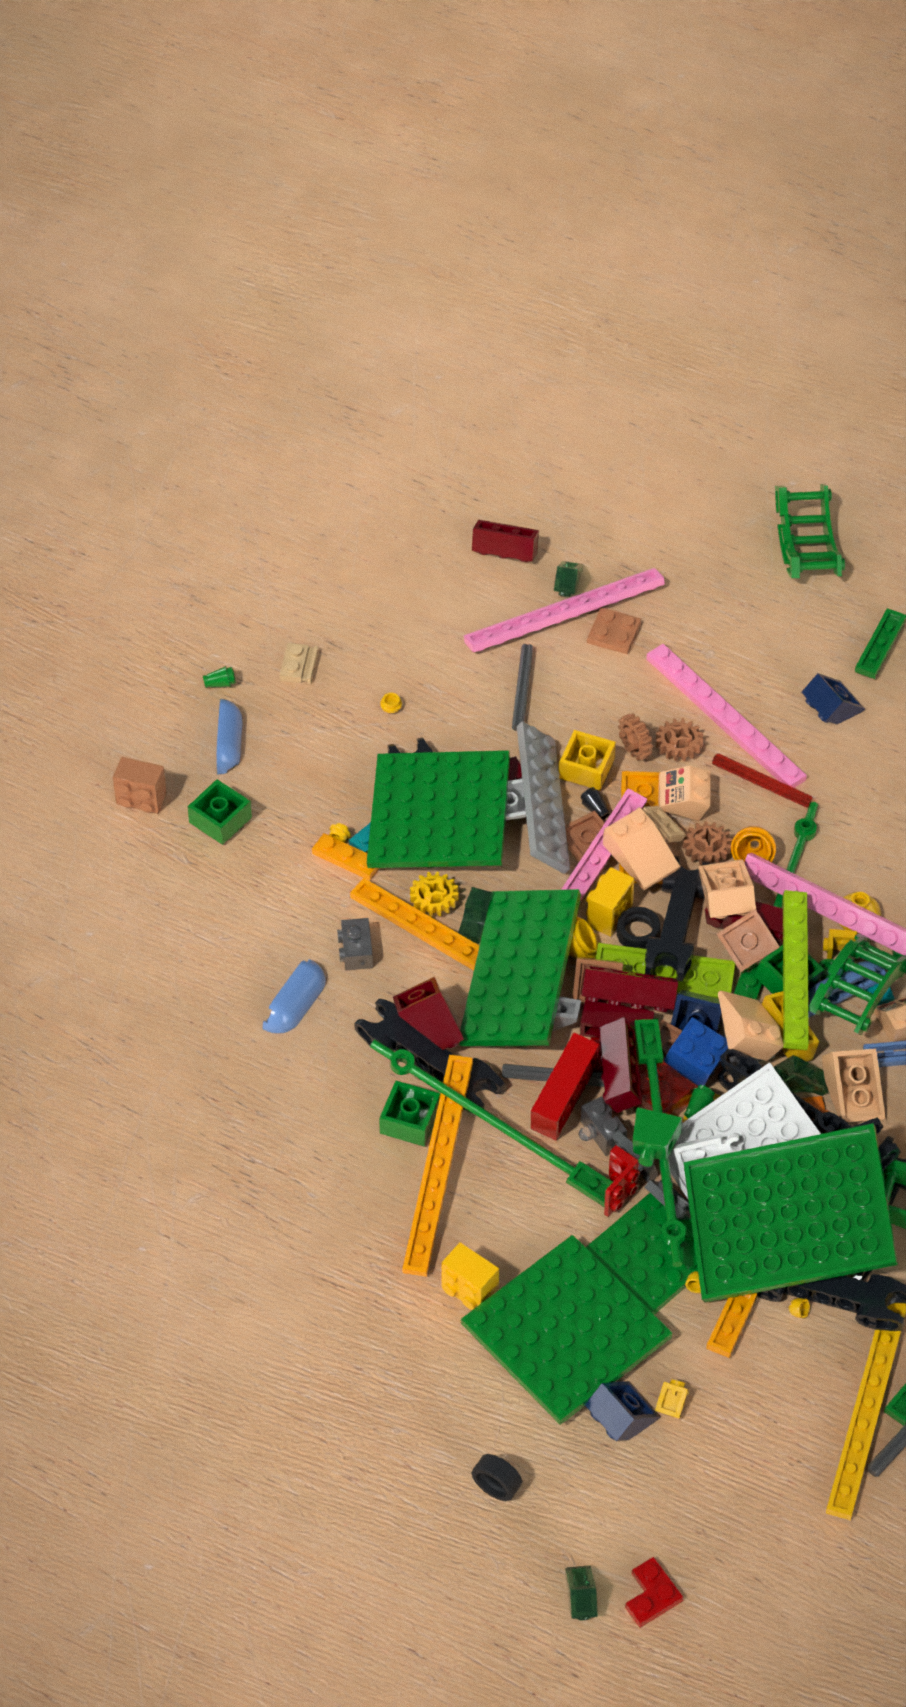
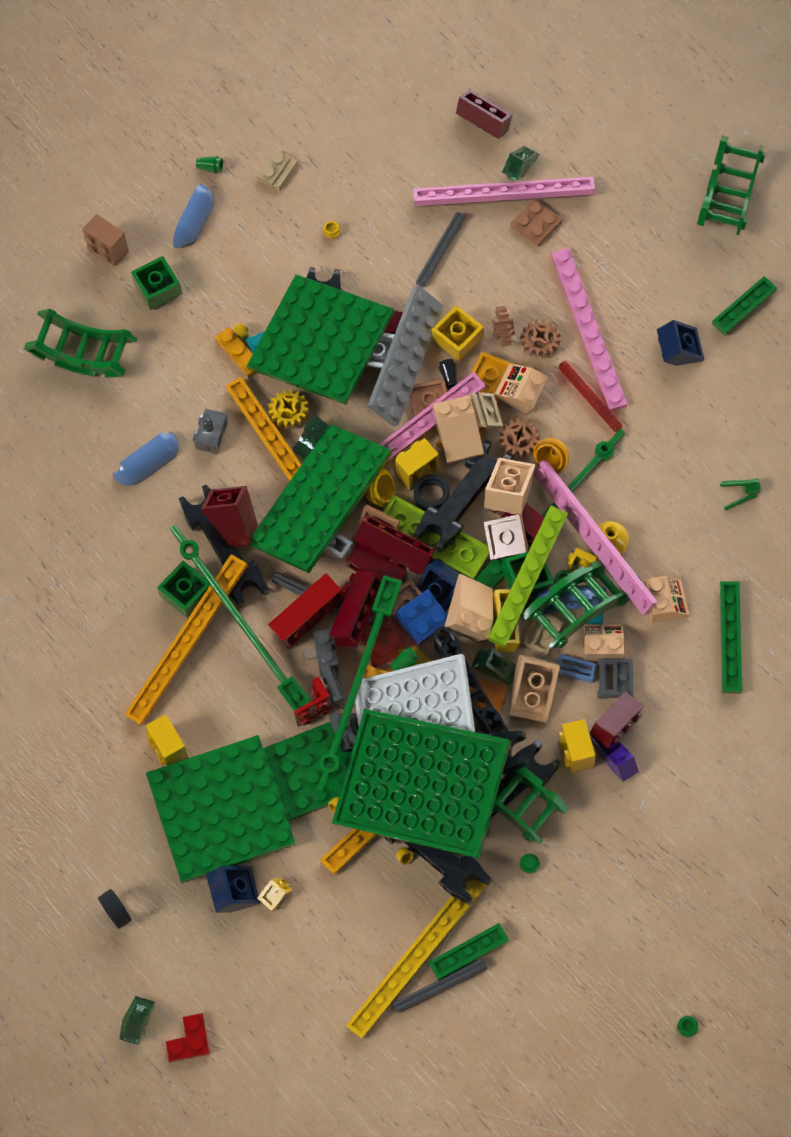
camera: 25 degrees right, 15 degrees up
(164, 923) = (76, 364): none -> green fence
(655, 1135) = (348, 680): green torso -> none
(705, 1148) = (385, 704): white plate -> none
(834, 1032) = (537, 636): none -> tan plate

